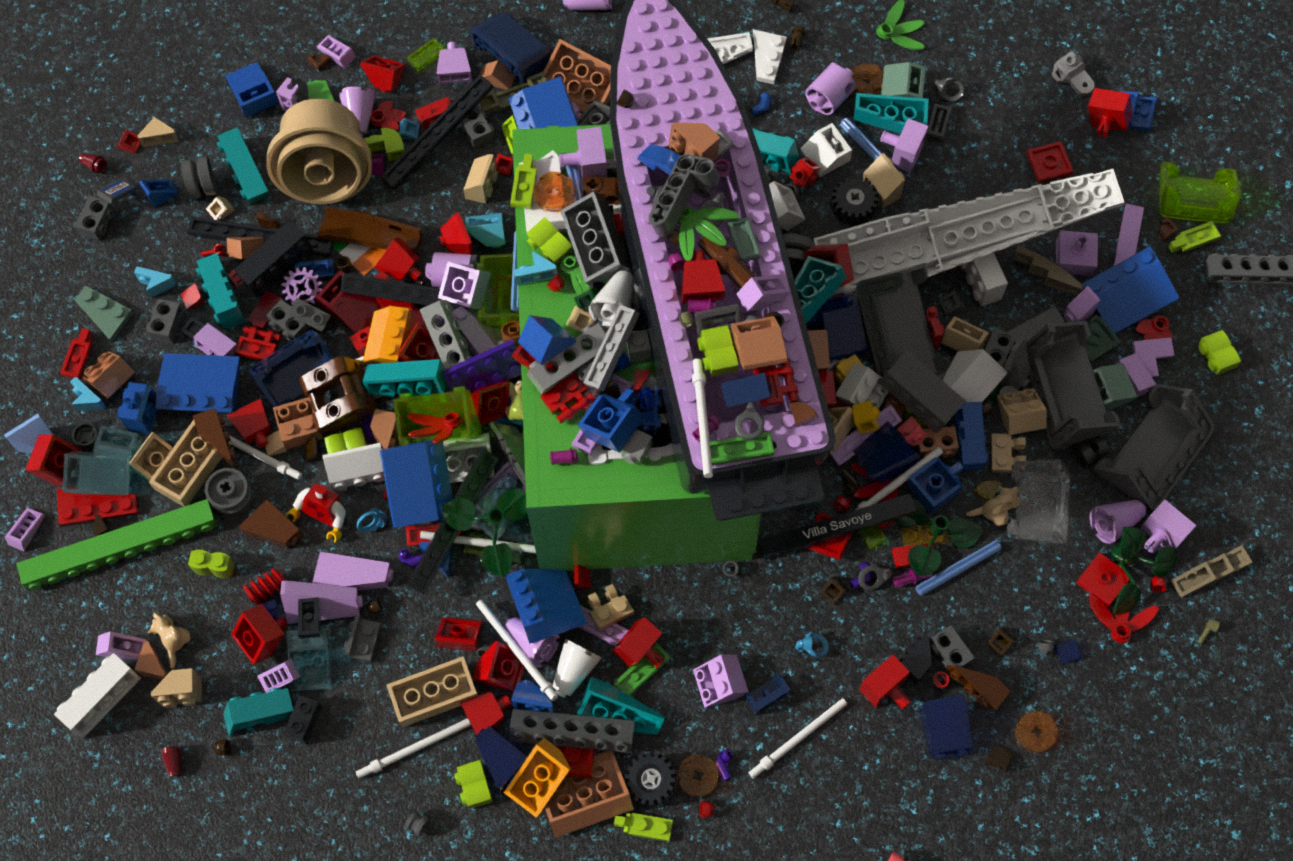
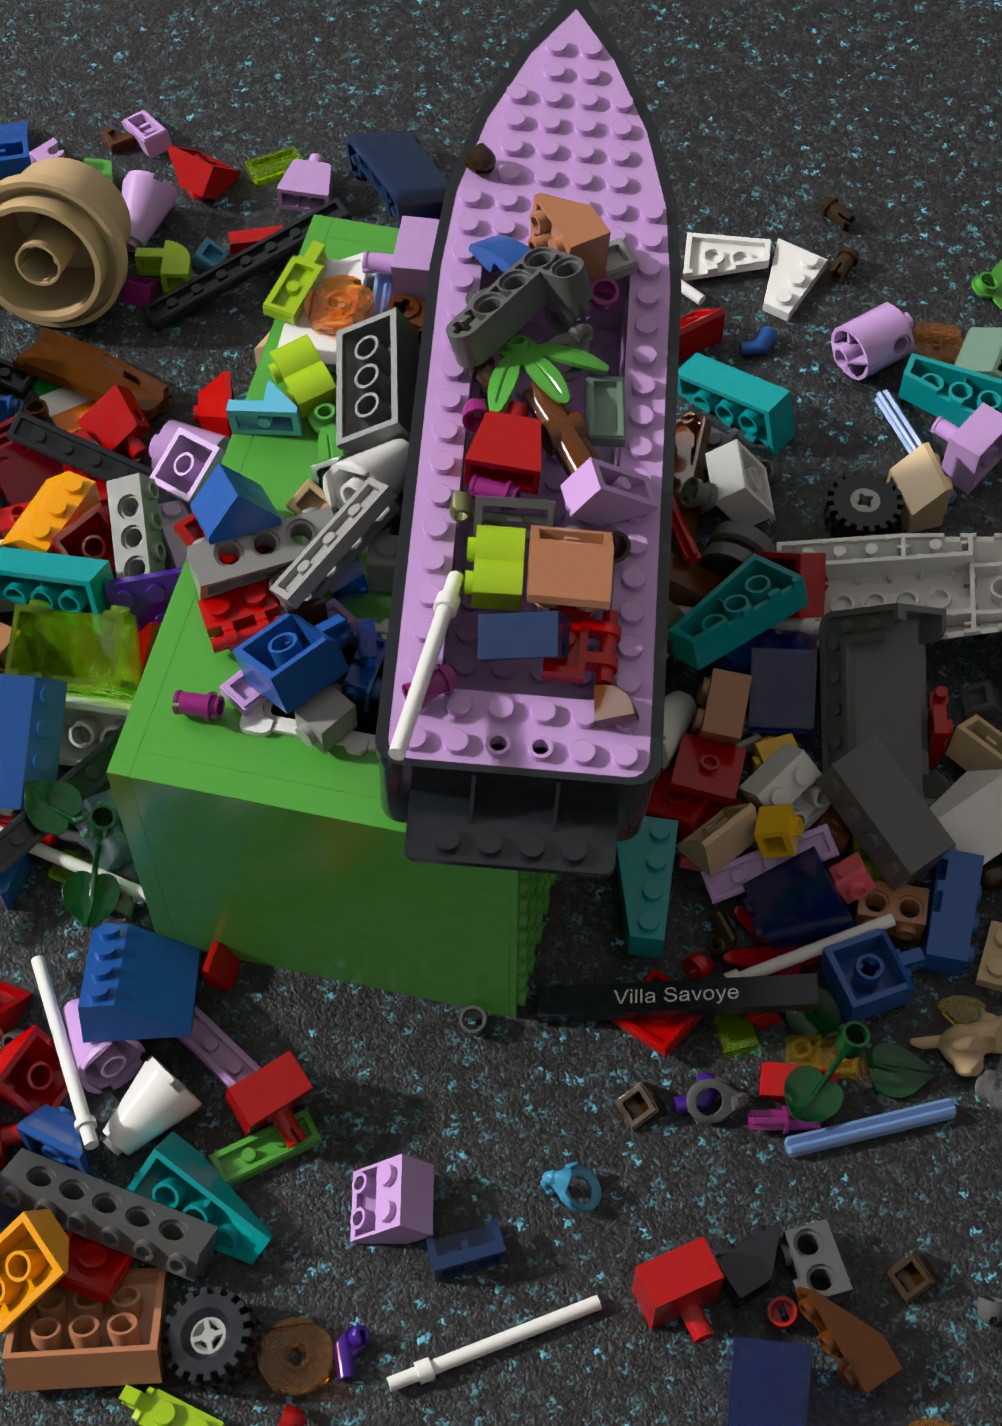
camera: 15 degrees right, 10 degrees down
(389, 116) = (184, 230): red plate -> none
(441, 426) = (70, 664): red plant -> none
(498, 75) = (370, 209): nougat slope -> none
(556, 284) = (291, 441): red hinge -> none
(610, 613) = (246, 1036): tan plate -> none
(641, 378) = (375, 608): red slope -> none
(738, 449) = (477, 736): bright green tile -> none
(749, 414) = (517, 684): dark grey piece -> none
(805, 172) = (795, 449): red brick -> none
(827, 149) = (840, 426): white slope -> none

